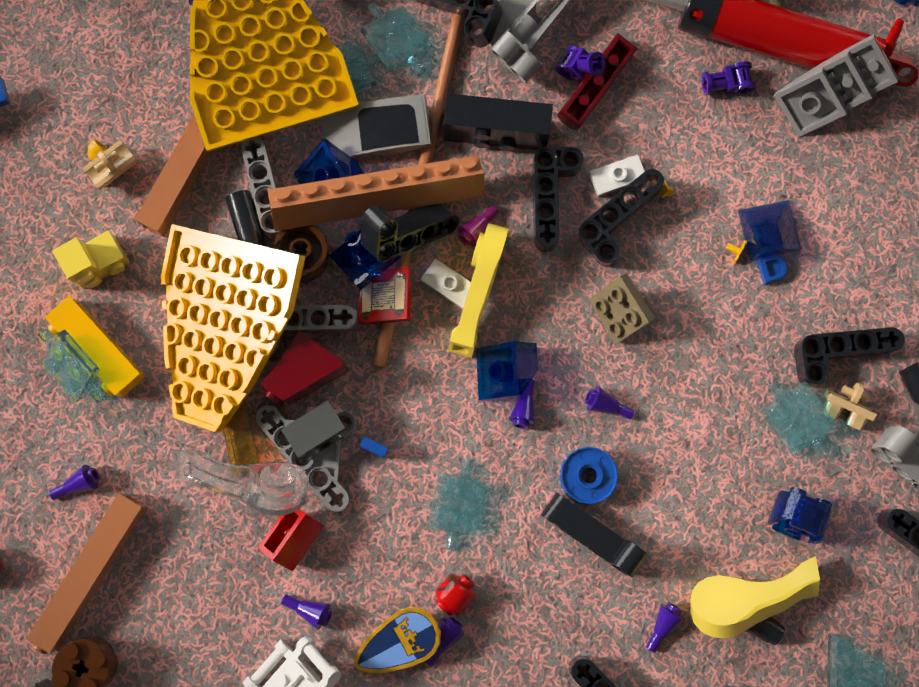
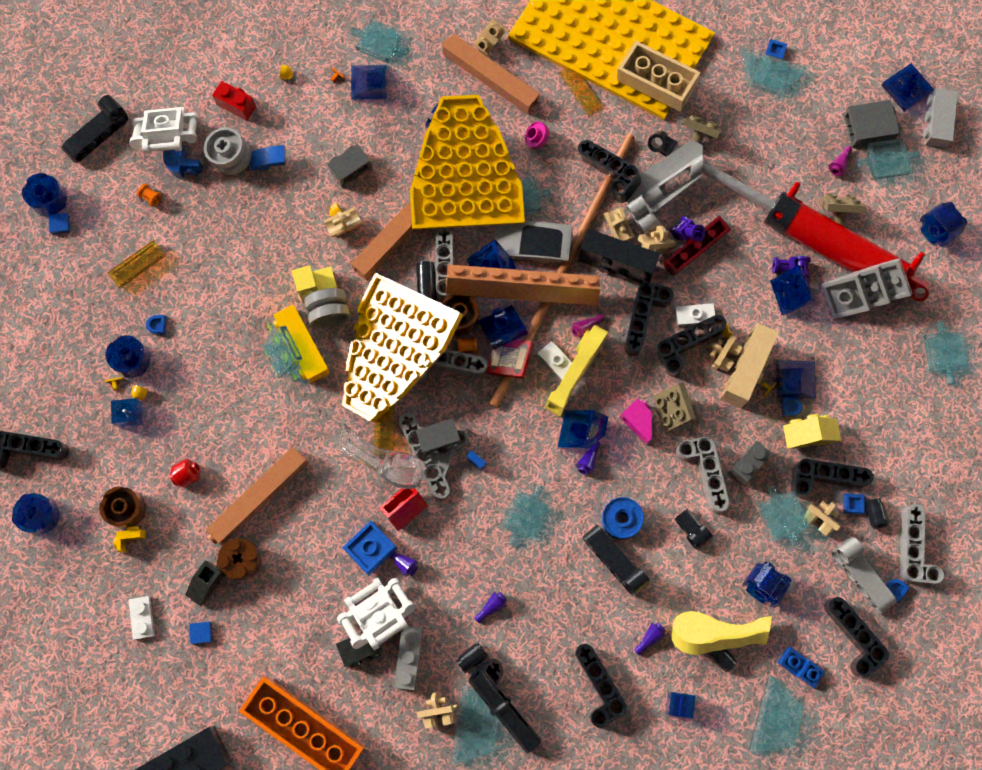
camera: 20 degrees right, 5 degrees down
(82, 480) = (270, 432): dark purple cone -> none
(99, 83) = (349, 165): none -> dark grey brick
(117, 289) = (327, 308): none -> light grey wheel
(260, 603) = (370, 548): none -> blue tile
(302, 371) = (440, 395): dark red slope -> none
(323, 292) = (467, 345): none -> orange bush
(392, 237) = (524, 317): black beam -> none
(396, 38) = (562, 183): clear light blue plate -> none
(400, 642) = (460, 599): shield -> none
(455, 594) = (507, 577): red head -> none
(487, 77) = (619, 224): none -> tan hips
(543, 88) = (657, 240): none -> tan hips
(578, 336) = (639, 420): none -> dark pink slope
(601, 401) = (644, 469): dark purple cone -> none
(673, 208) = (730, 347): none -> tan hips
(685, 389) = (707, 475): none -> light grey beam
(690, 469) = (696, 533): none -> black piece
(707, 228) = (749, 366): none -> tan brick
(738, 358) = (750, 463): none -> dark grey brick
(745, 107) = (796, 291): none -> clear blue plate
(814, 294) = (812, 431): none -> light yellow brick
(868, 612) = (801, 667): none -> blue slope
(884, 377) = (854, 503): none -> blue tile

